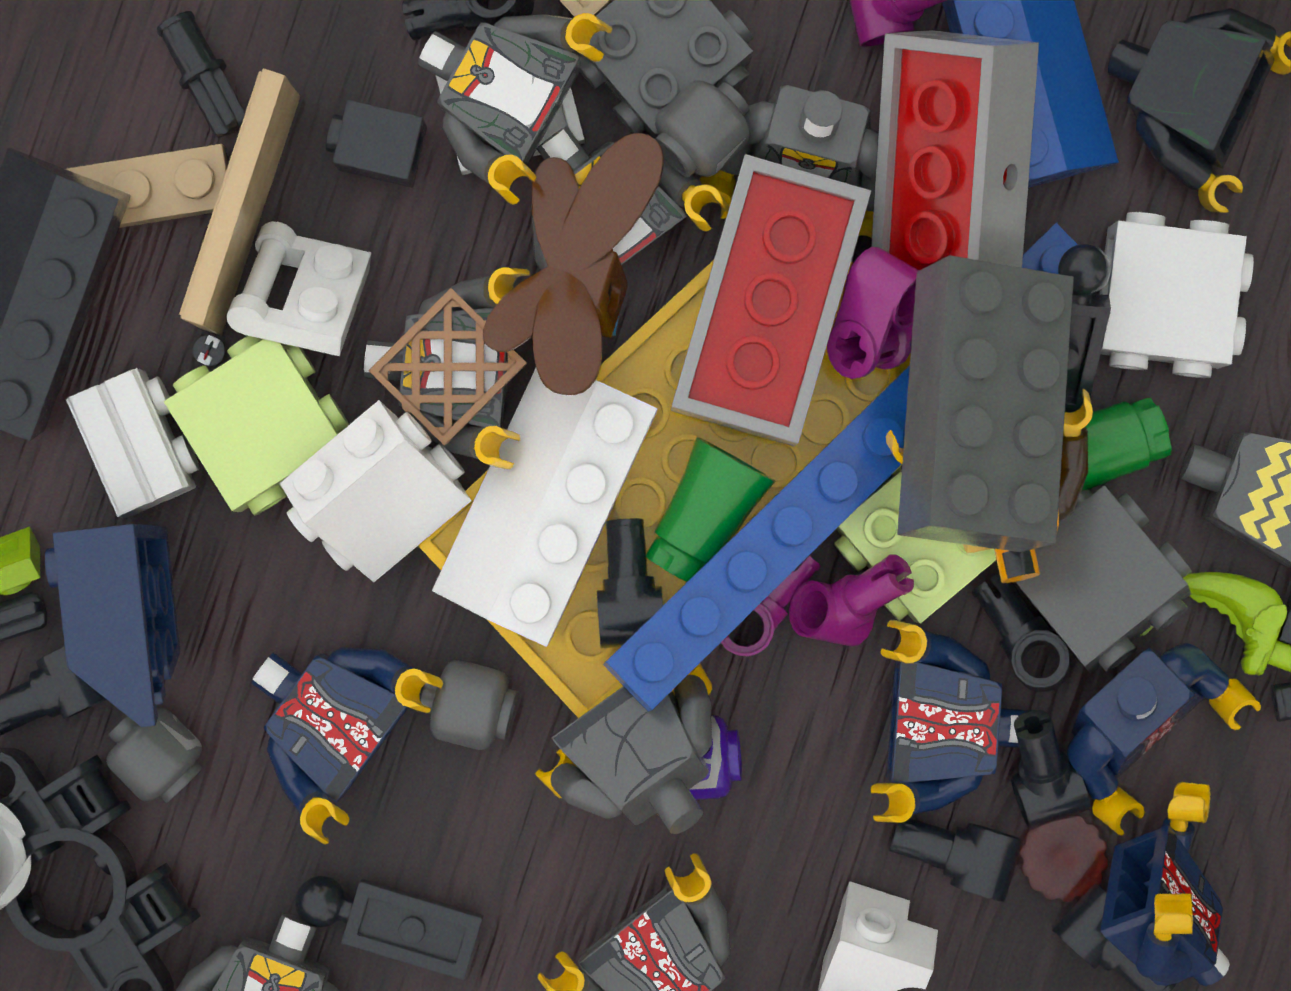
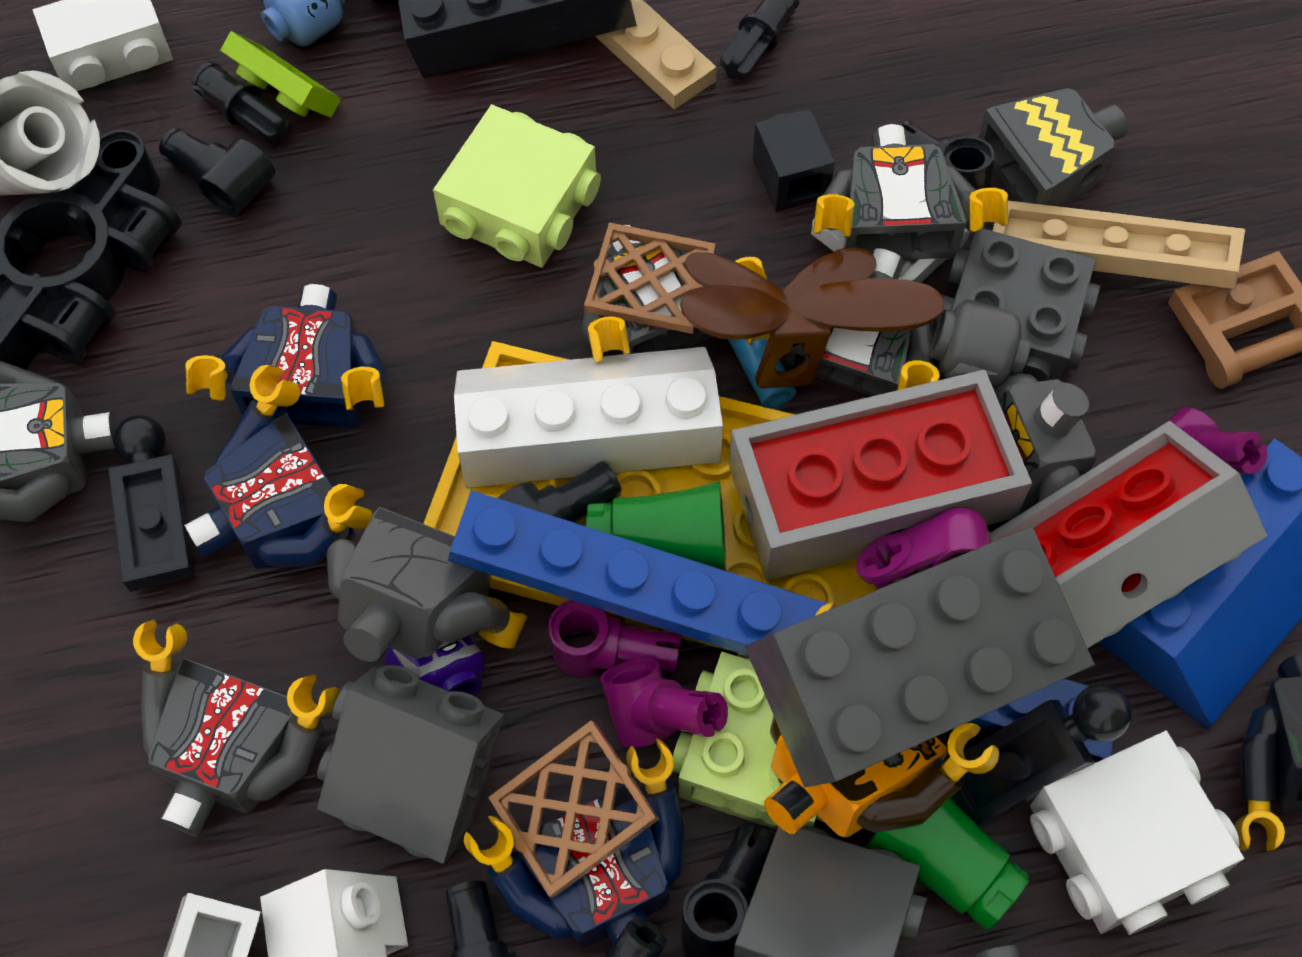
camera: 65 degrees right, 25 degrees down
(118, 612) = (304, 139): dark blue wedge -> none
(133, 442) = (441, 117): white brick -> none
(154, 758) = (201, 254): dark grey head -> none
(240, 202) = (680, 81): tan tile -> none
(320, 298) = (635, 172): white plate -> none
(375, 491) = (513, 276): white brick -> none
(453, 811) = (273, 488): none -> torso
(470, 706) = (376, 454): dark grey head -> none
(778, 828) = (407, 760): none -> dark grey brick
(903, 675) = (601, 850): none -> medium nougat window

